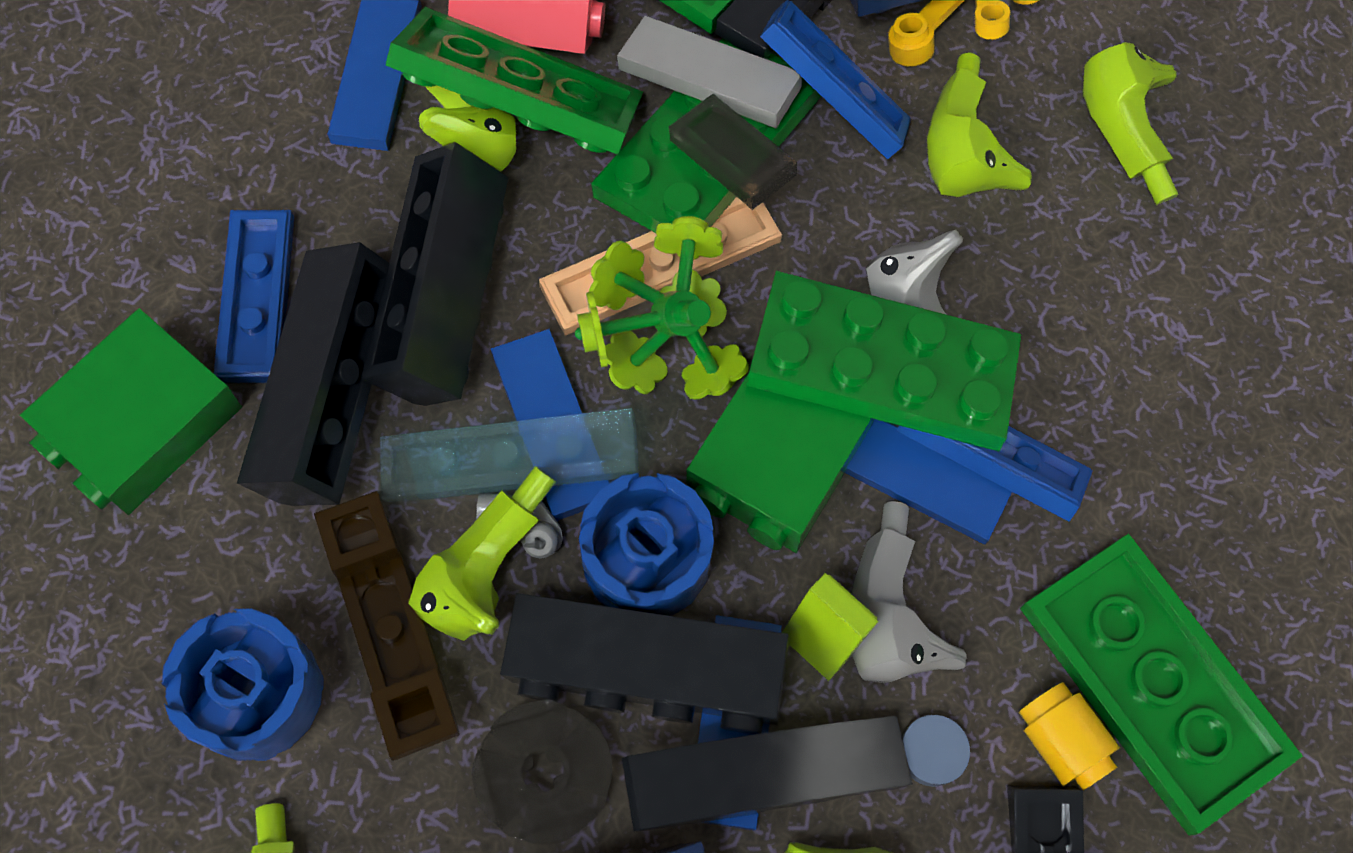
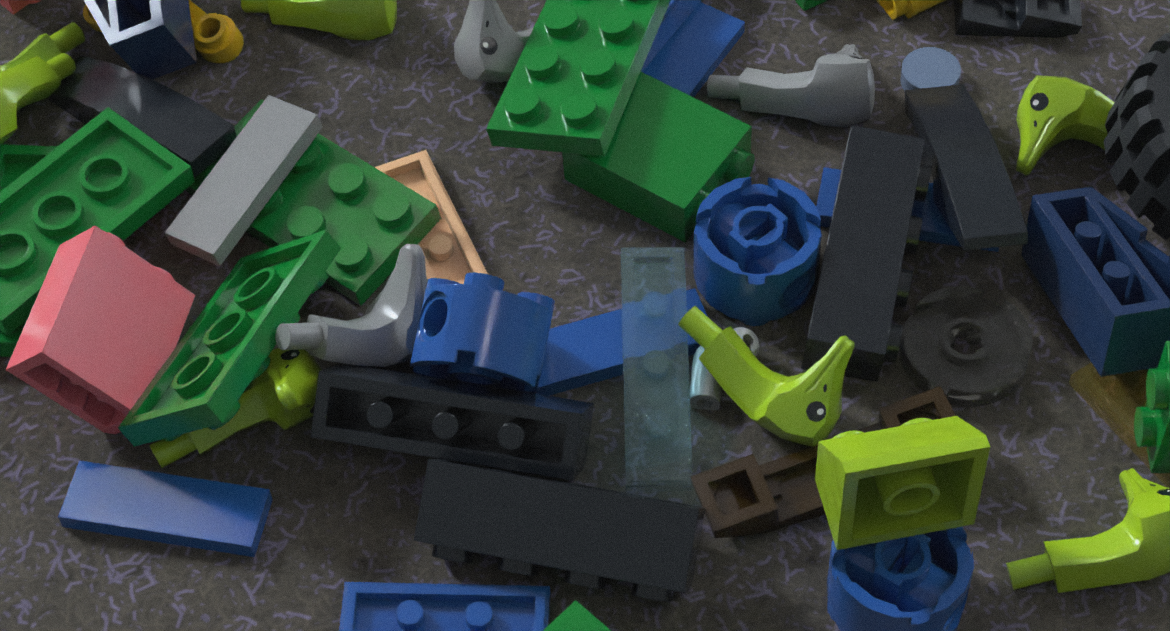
camera: 80 degrees left, 15 degrees down
(279, 658) = (901, 480): none -> lime slope
(510, 283) = (482, 333): none -> blue brick
(546, 223) = (379, 337): none -> light grey animal
(676, 311) = (564, 203): lime plant -> none
(733, 151) = (347, 157): clear smoke tile -> none
(829, 626) = (833, 104): lime tile -> none
(837, 78) = (271, 76): blue tile -> none

